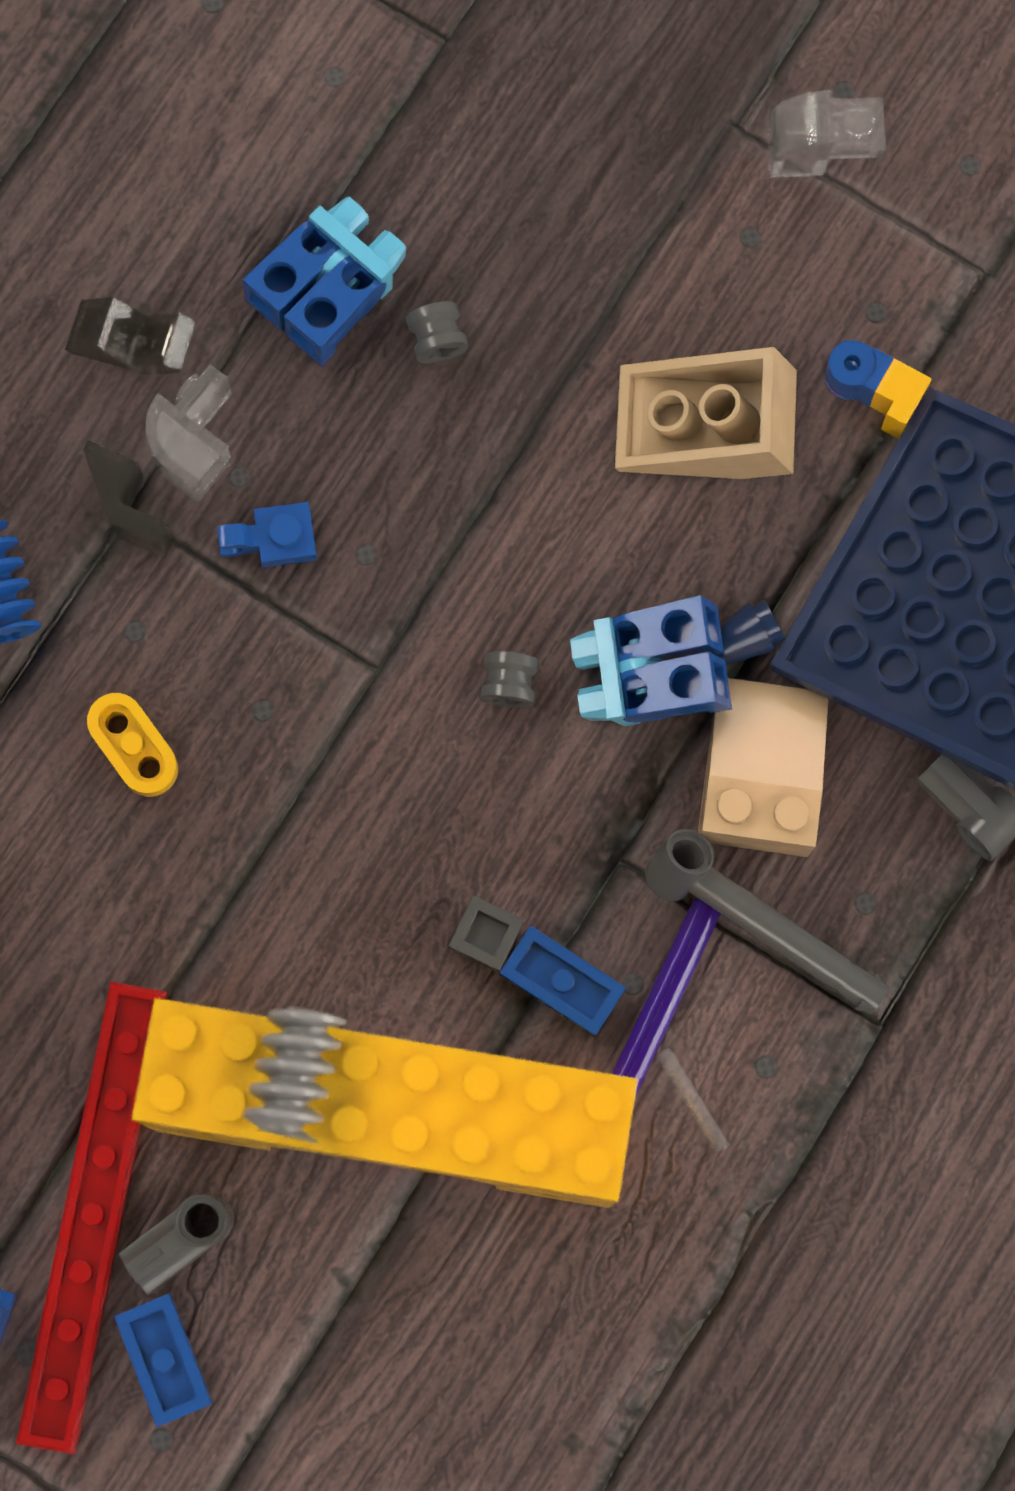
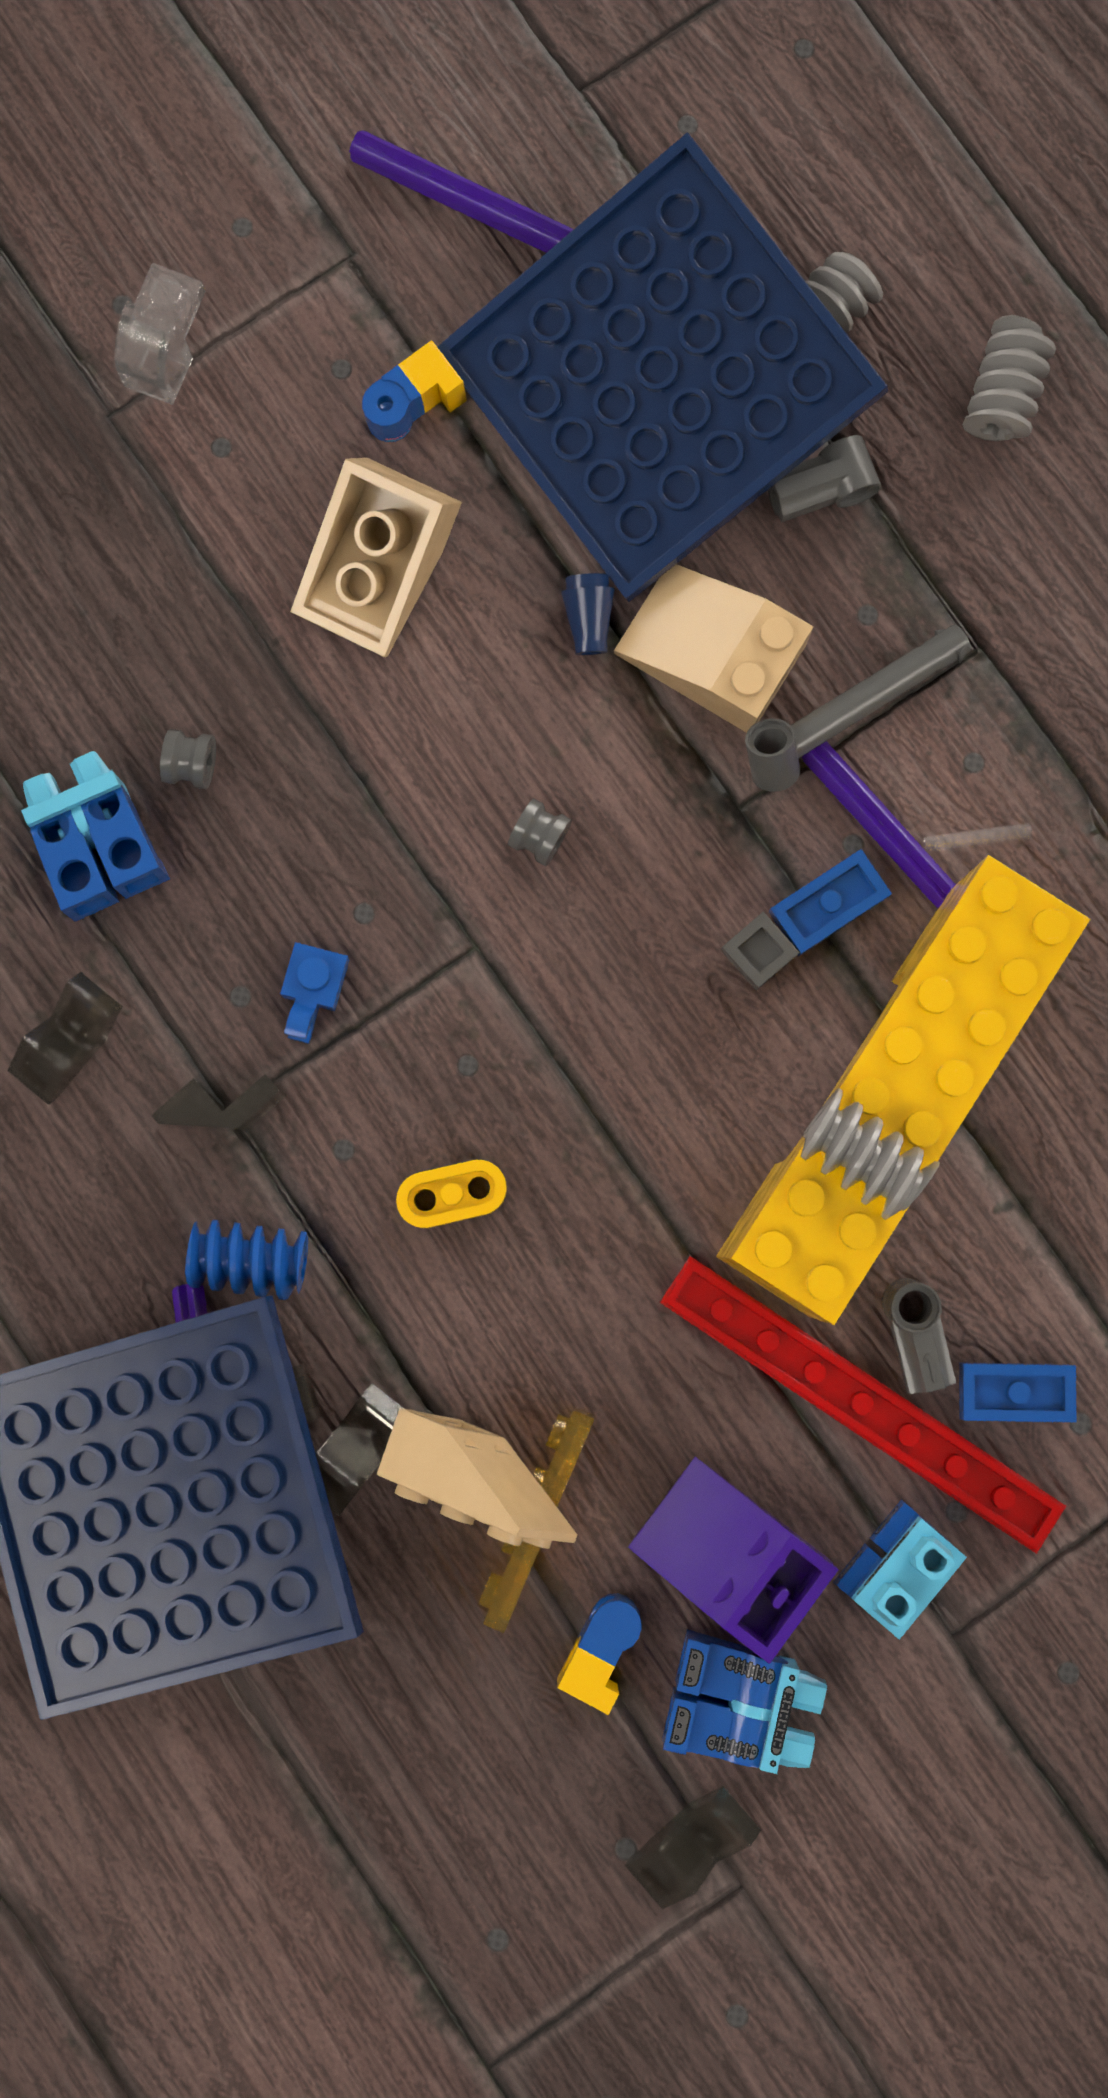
camera: 60 degrees left, 5 degrees up
(177, 436) = (188, 1035): clear brick -> none
(654, 663) = (580, 716): hips -> none

